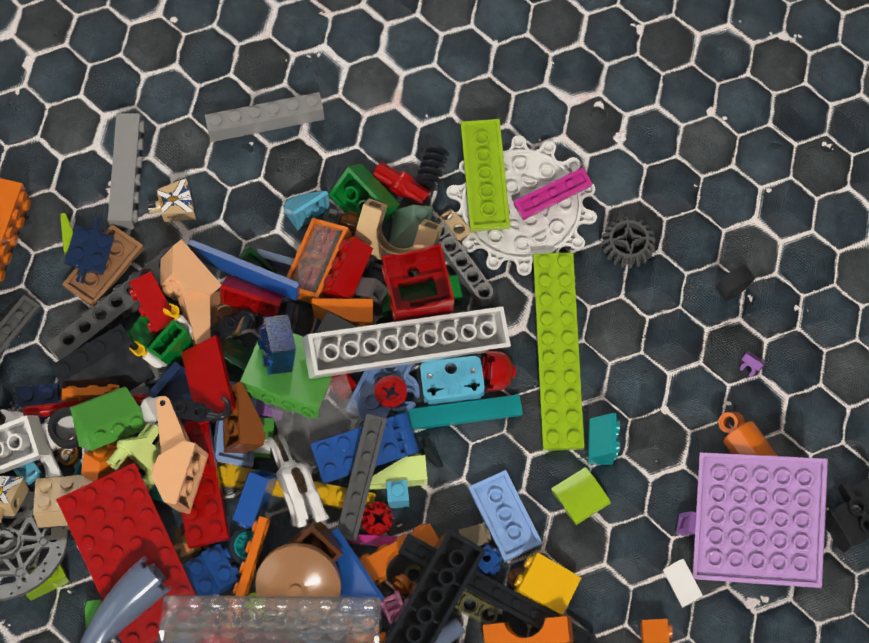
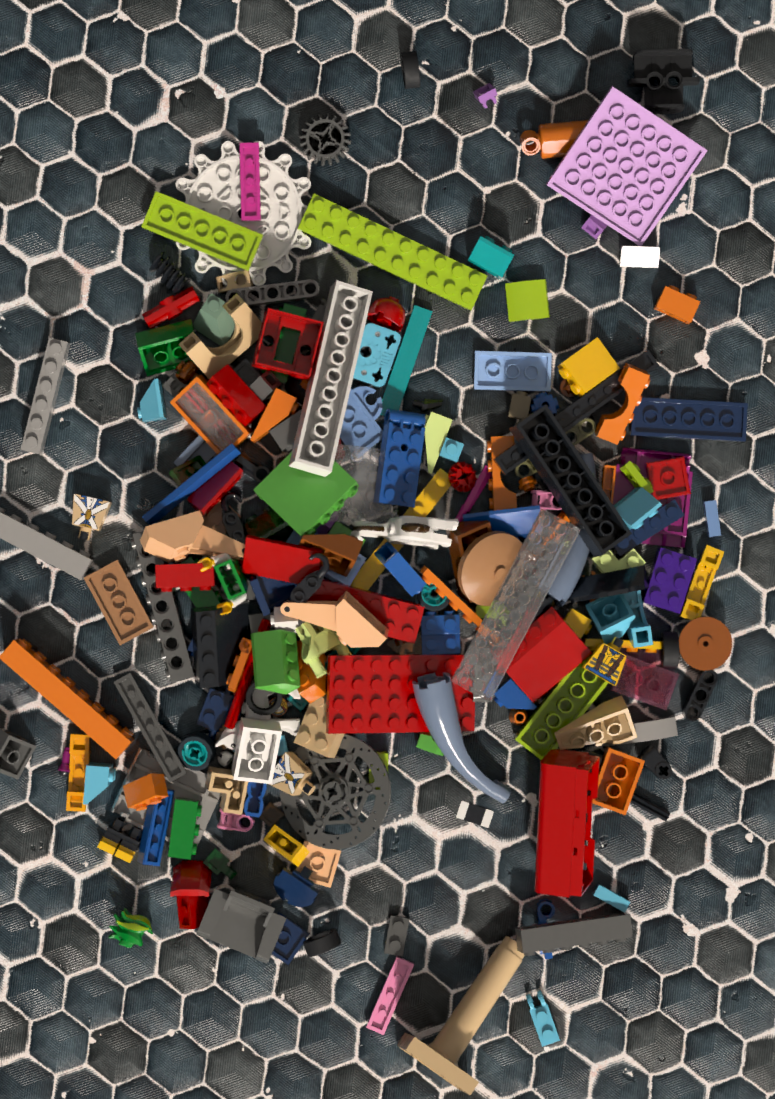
camera: 60 degrees left, 20 degrees up
(67, 232) = (79, 620): lime slope -> none
(89, 250) = (102, 608): dark blue plate -> none
(277, 344) = (286, 489): brick -> none
(361, 476) = (426, 473): dark grey plate -> none
(387, 383) = (371, 413): red gear -> none

